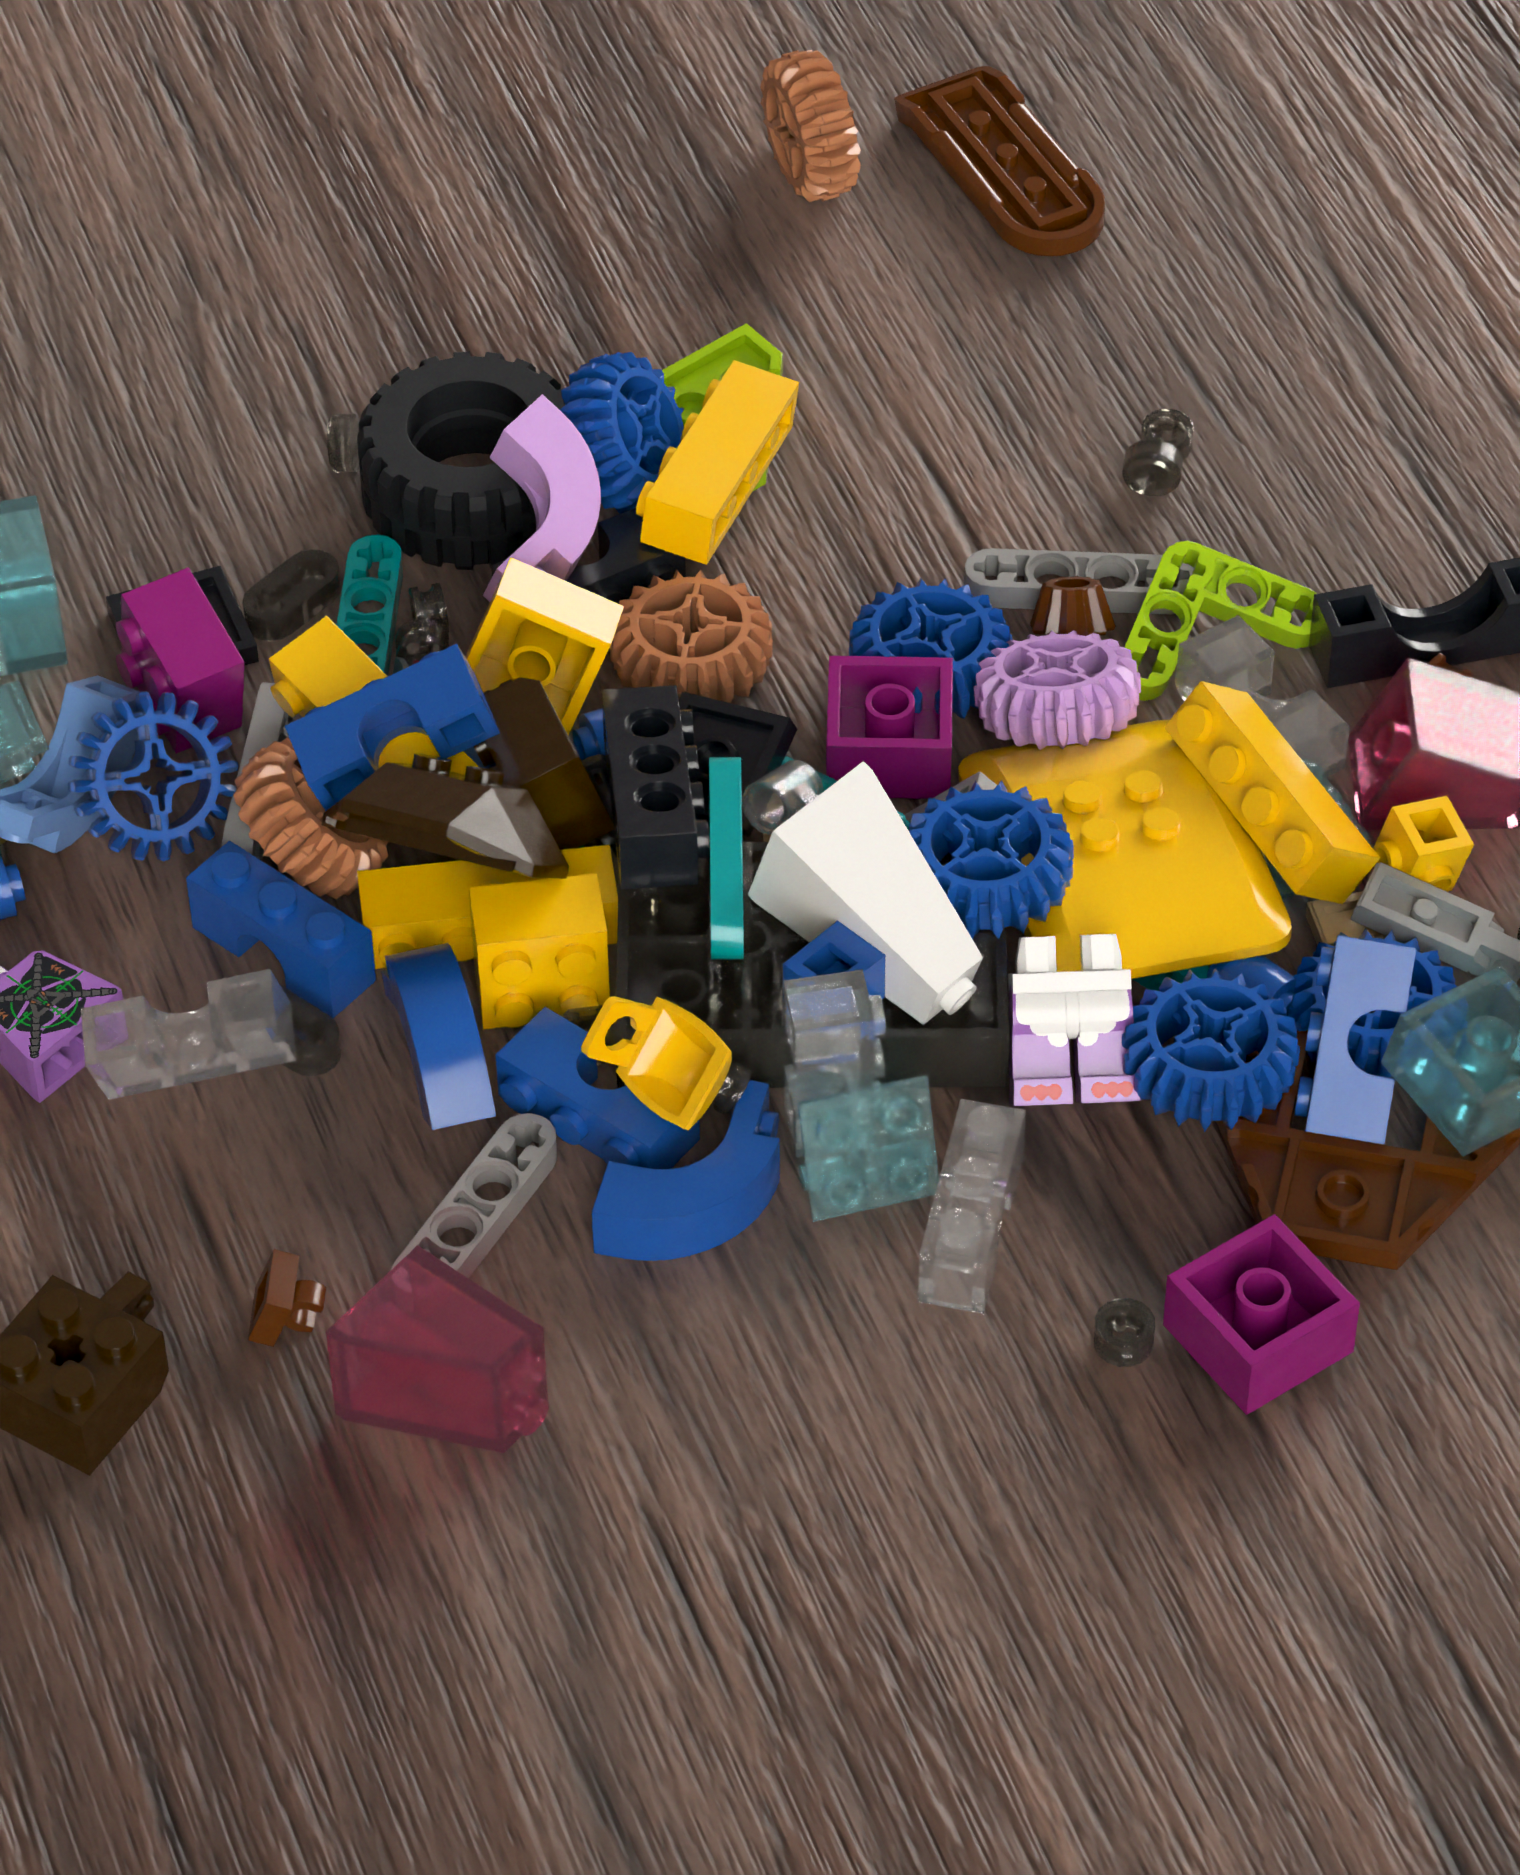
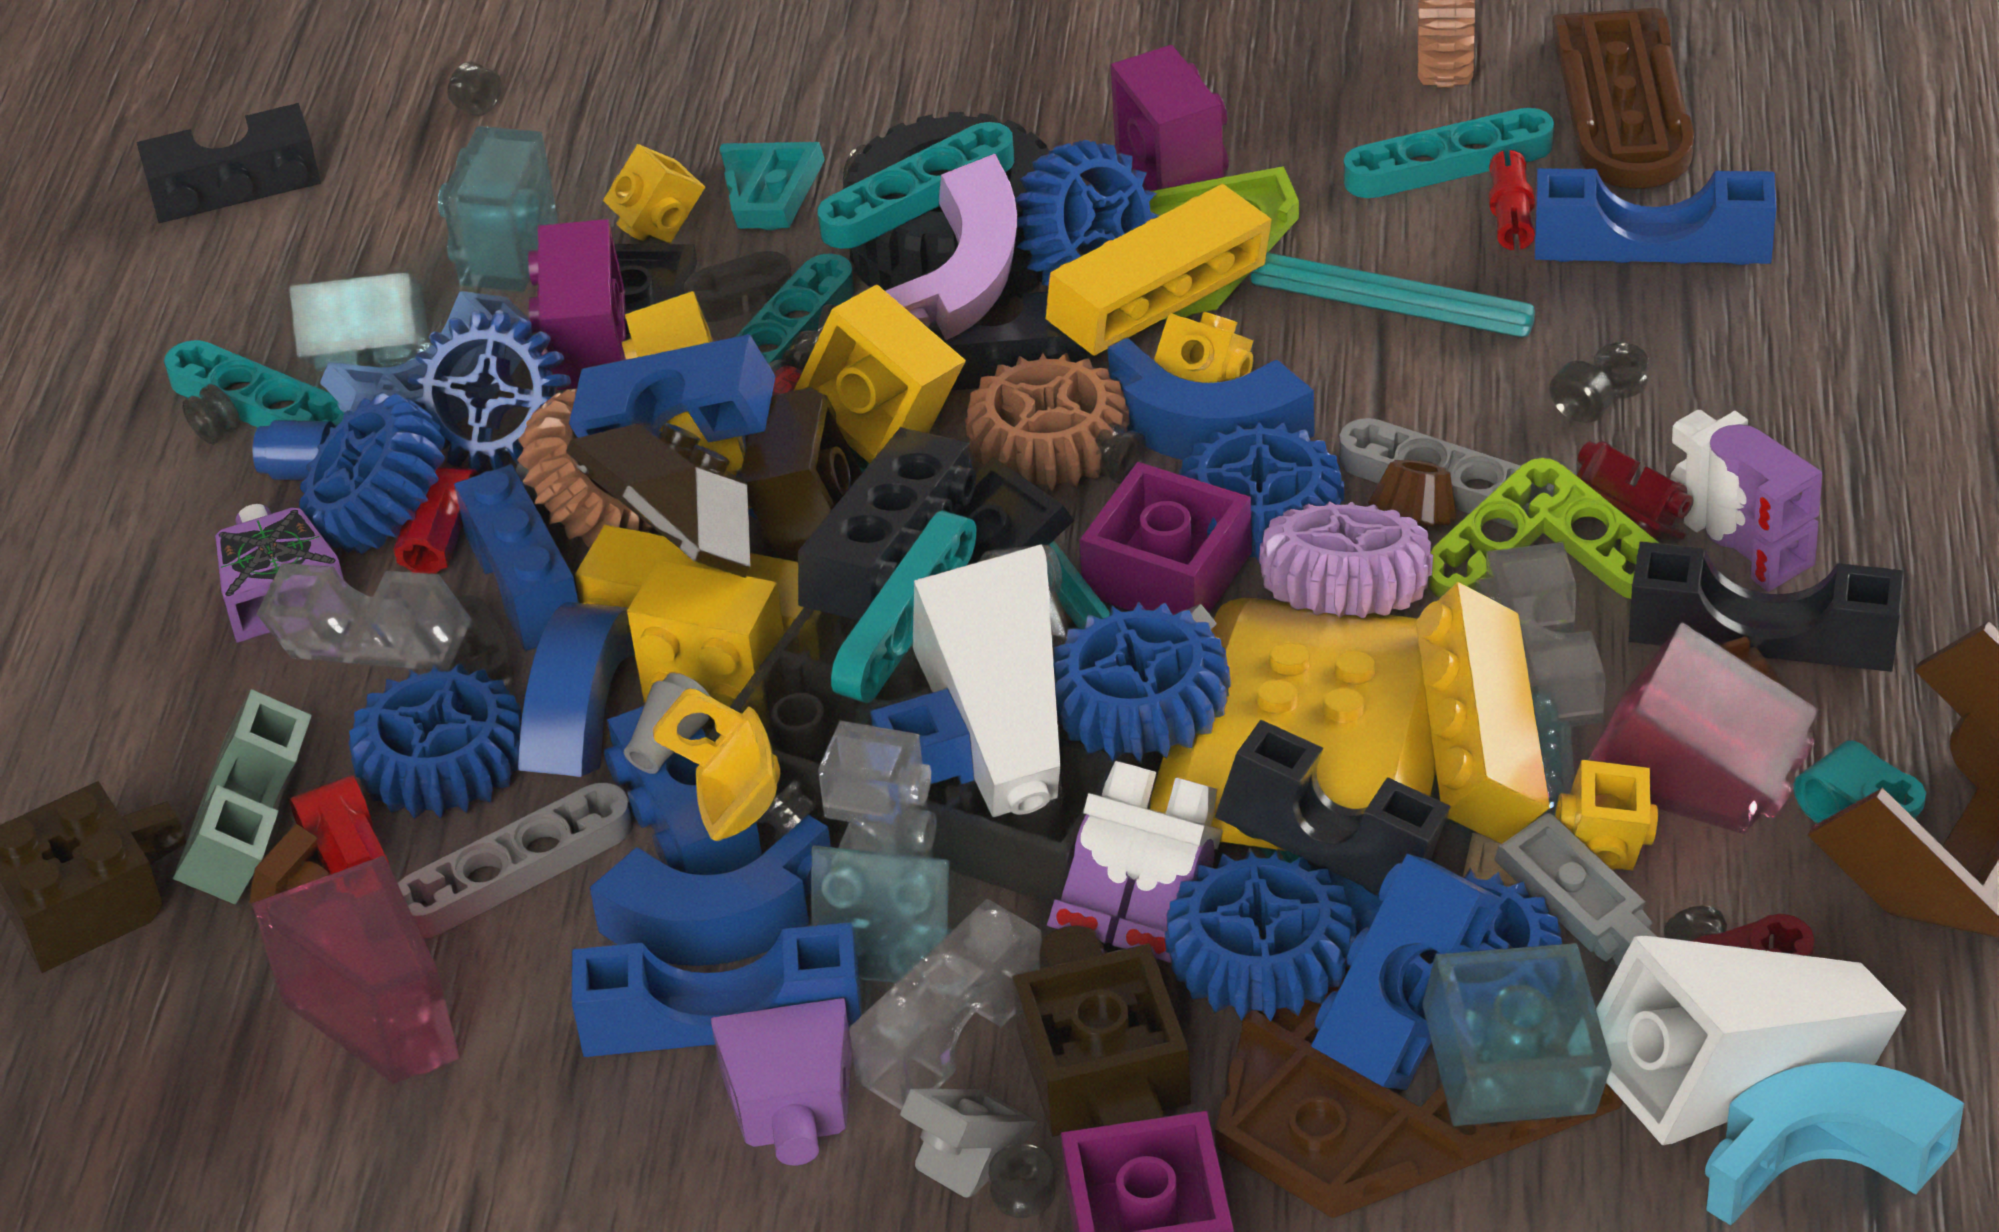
camera: 30 degrees right, 5 degrees down
(91, 890) = (372, 472): none -> blue gear
(153, 527) = (653, 195): none -> yellow brick
(160, 907) = (430, 539): none -> red piece
(202, 1283) = (240, 797): none -> sand green arch
(245, 478) = (769, 180): none -> teal wing
(293, 1226) = (340, 822): none -> red piece
(294, 1146) = (436, 740): none -> blue gear
(443, 440) = (860, 213): none -> teal beam
(563, 1027) = (643, 749): none -> light grey cone
(622, 304) = (1167, 119): none -> magenta brick
(777, 530) = (1204, 349): none -> yellow brick
(778, 651) = (1119, 451): none -> clear smoke bush
(826, 596) = (1185, 412): none -> blue arch
(831, 300) = (1387, 165): none -> teal beam
(832, 1235) = (640, 1004): none -> blue arch
(868, 1316) = (787, 1074): none -> medium lavender torso
(924, 421) = (1395, 295): none -> teal axle
(969, 297) = (1511, 200): none -> red pin
(1056, 1316) = (963, 1134): none -> light grey slope
(1160, 1180) = (1099, 1033): none -> dark brown brick
(1181, 267) = (1719, 224): none -> blue arch
(1271, 938) = (1279, 800): none -> black arch
(1279, 548) = (1649, 504): none -> dark red hinge
(1362, 521) = (1749, 494): none -> medium lavender hips

